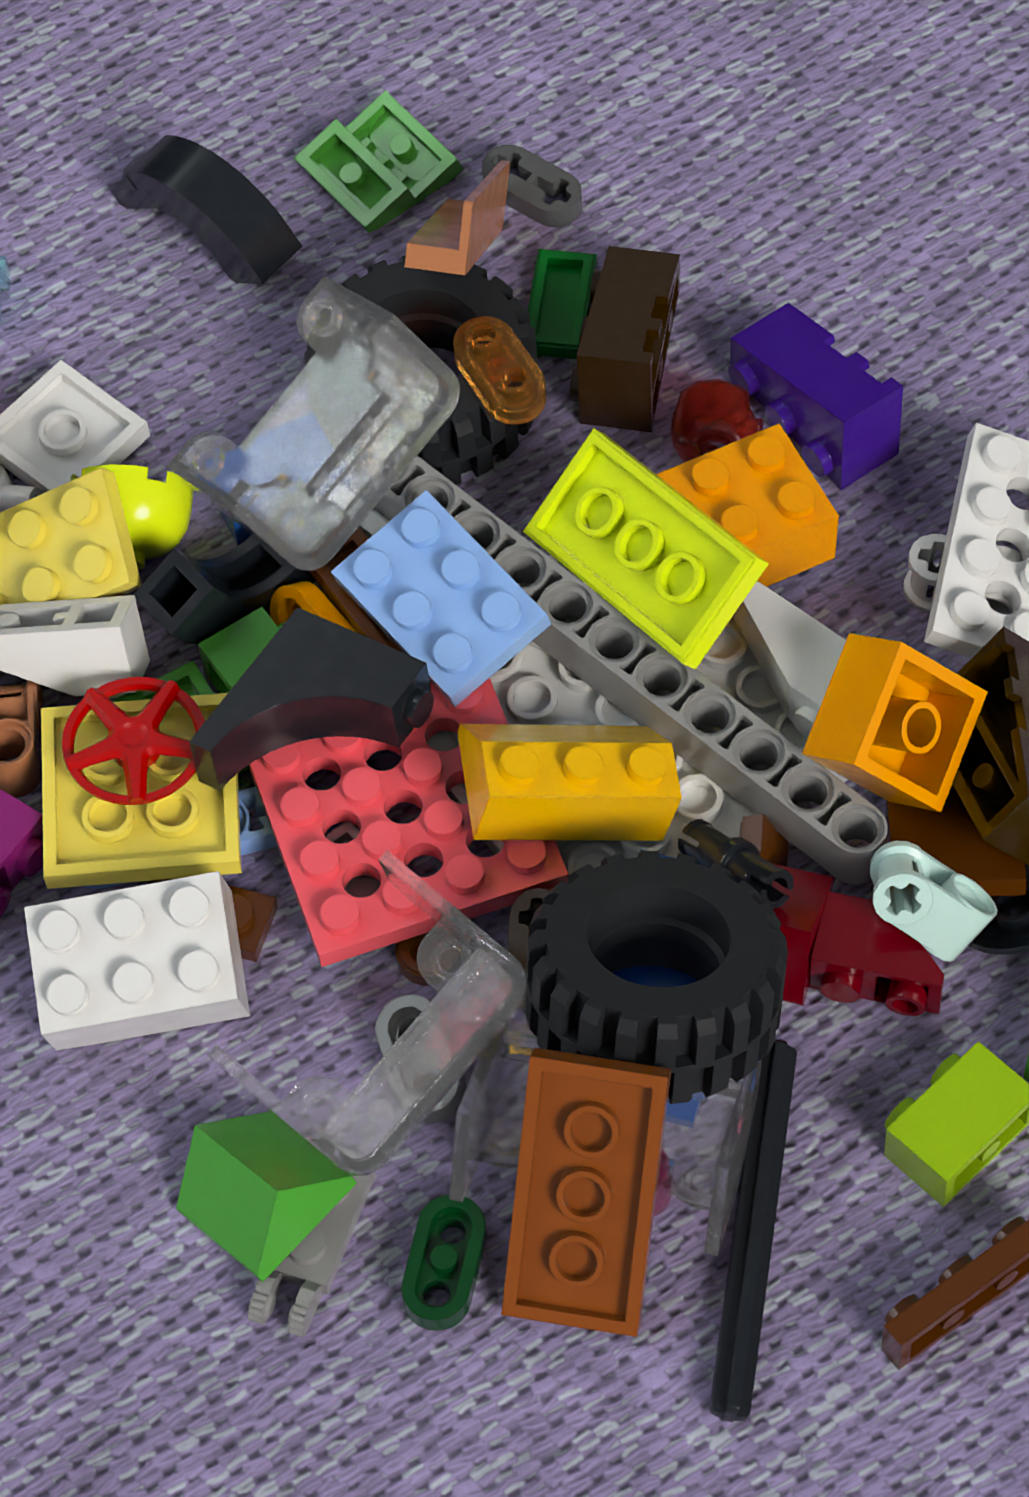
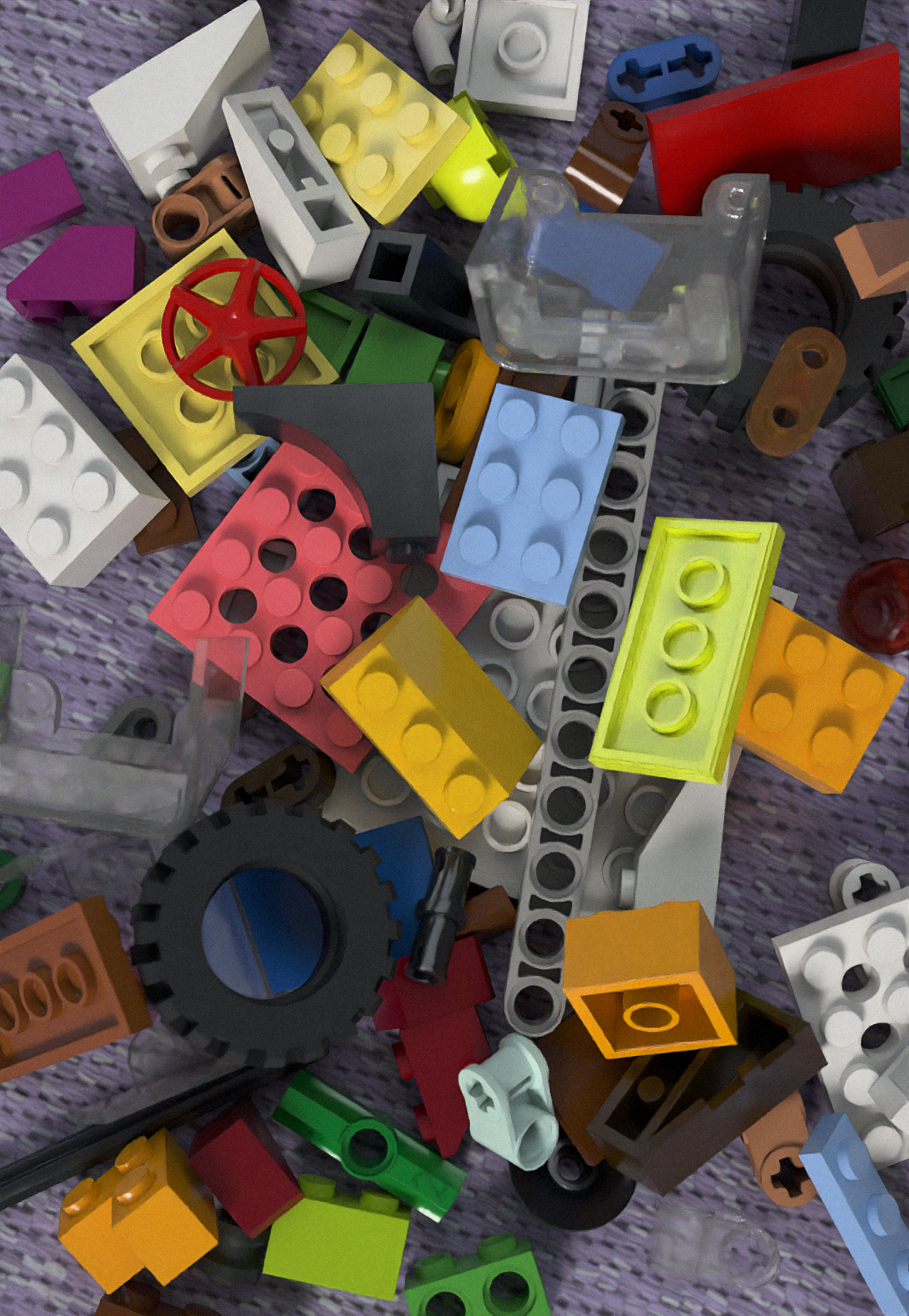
camera: 55 degrees right, 25 degrees up
(153, 347) = (659, 60): none -> blue beam
(211, 405) = (609, 156): none -> reddish brown piece
(285, 256) = (797, 126): none -> red tile
(827, 1250) = (140, 1215): none -> light orange brick
(844, 1144) = (245, 1167): none -> dark red slope
(859, 1071) = (405, 1169): none -> green piece
(911, 1210) = (236, 1254): none -> pearl dark grey wheel

